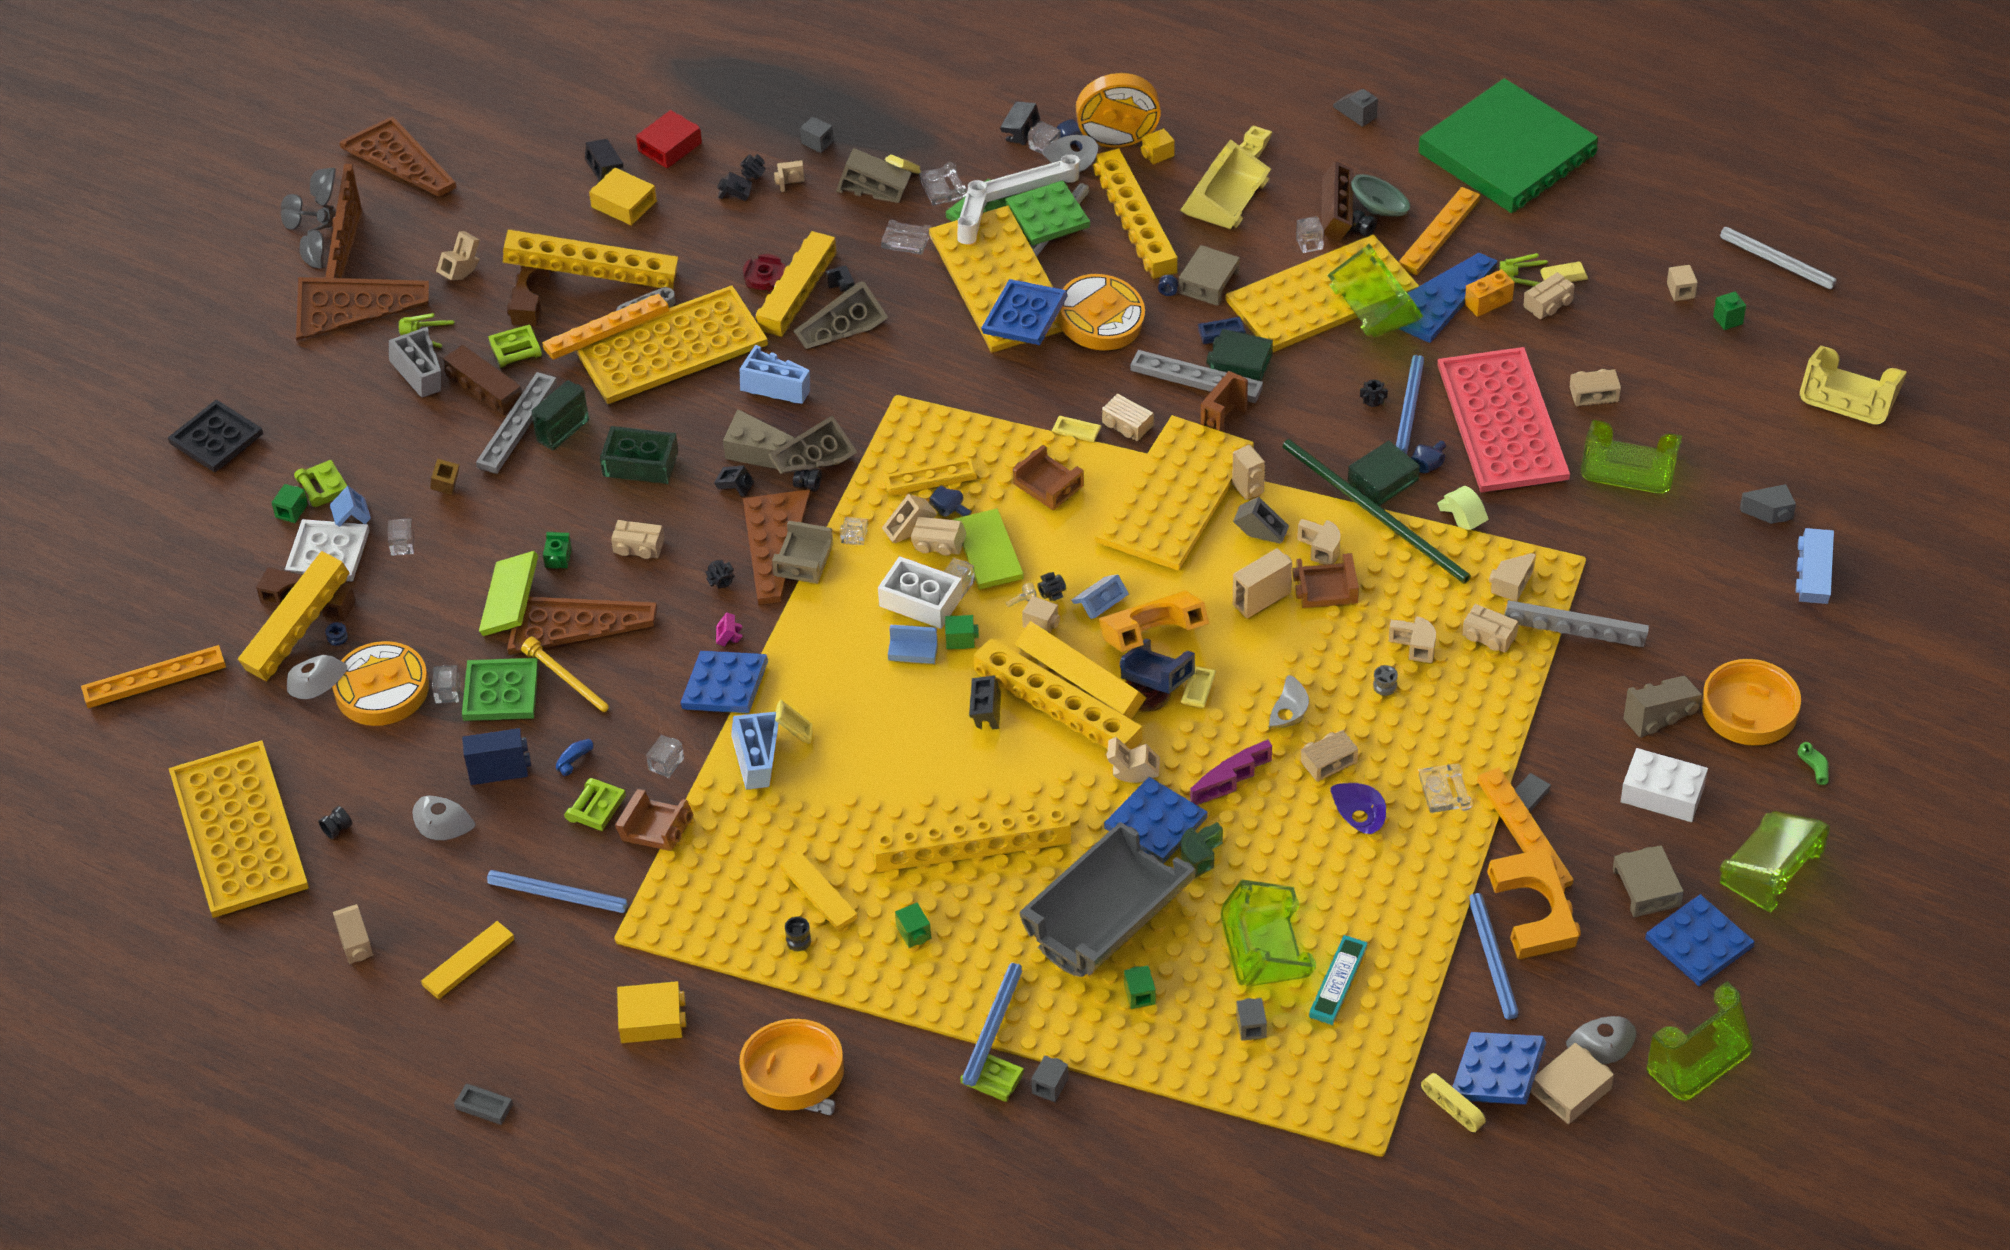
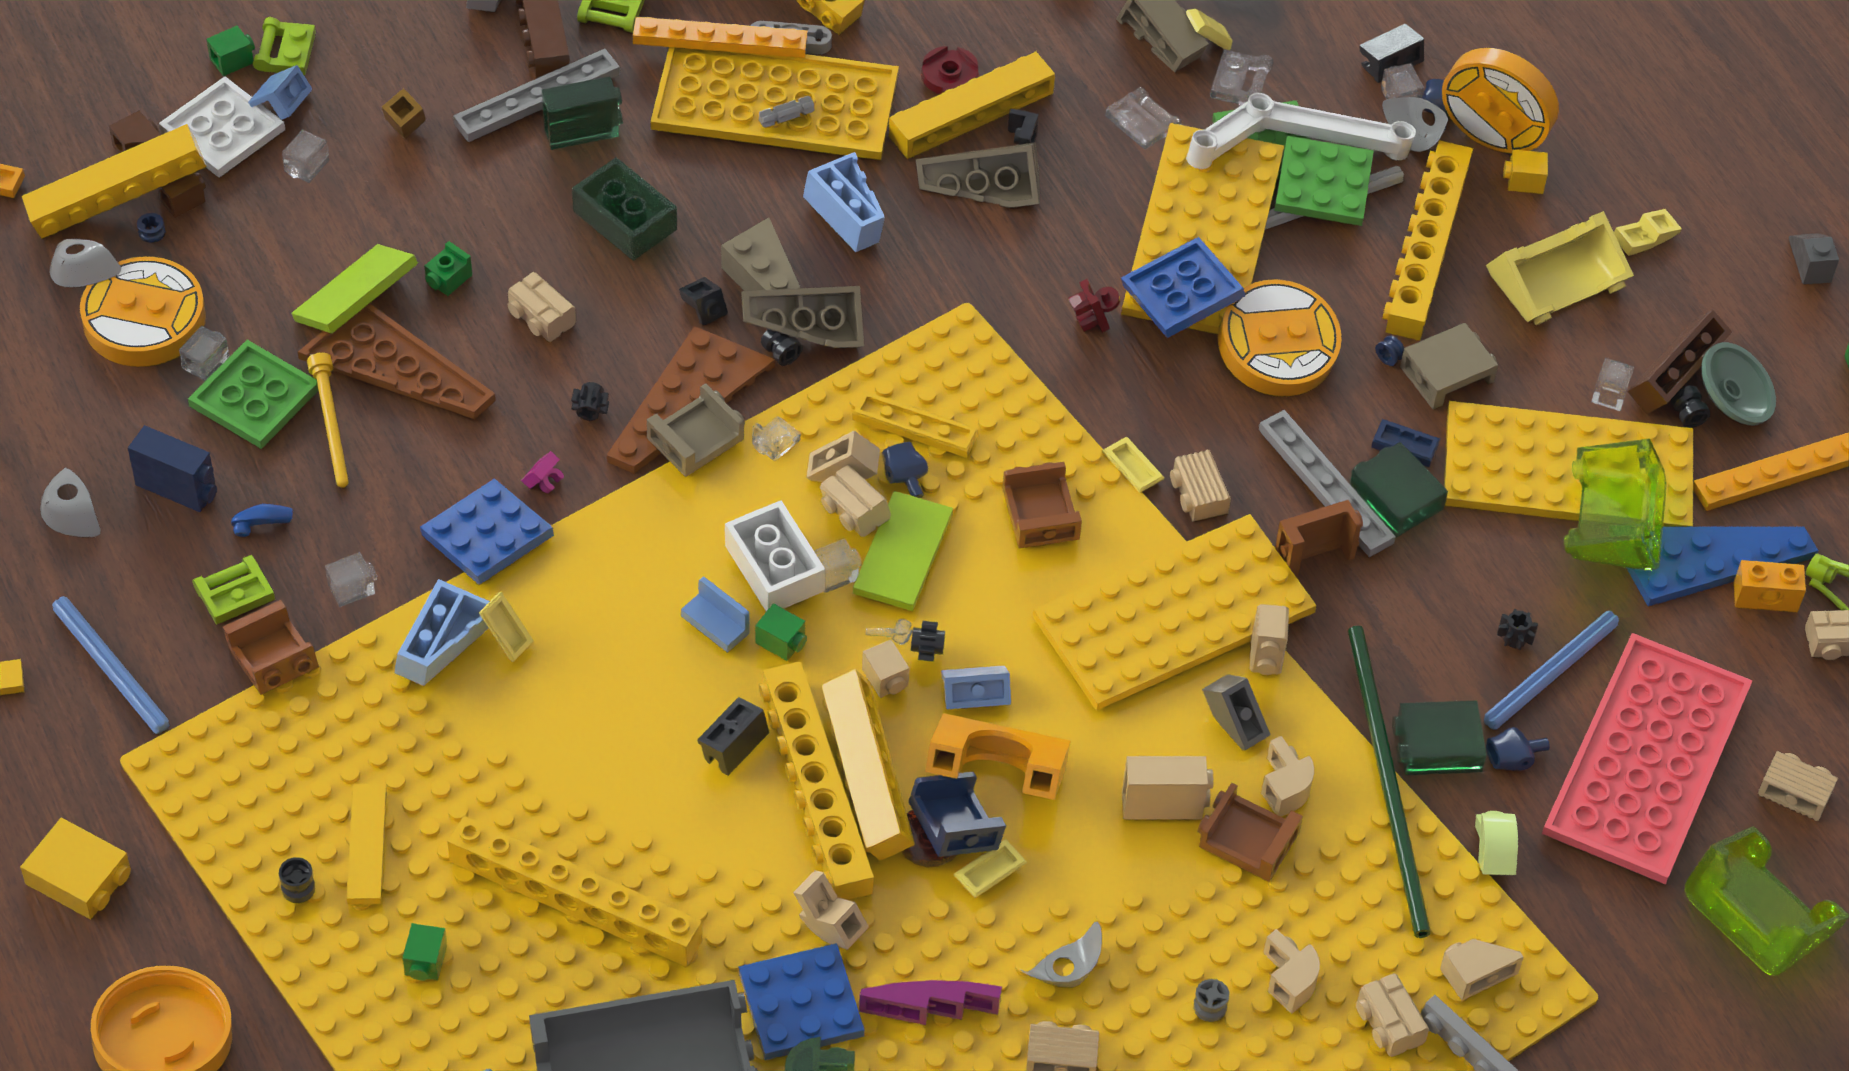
camera: 30 degrees right, 5 degrees up
(688, 346) = (786, 111): none -> light grey axle
(977, 353) = (1090, 308): none -> dark red hips

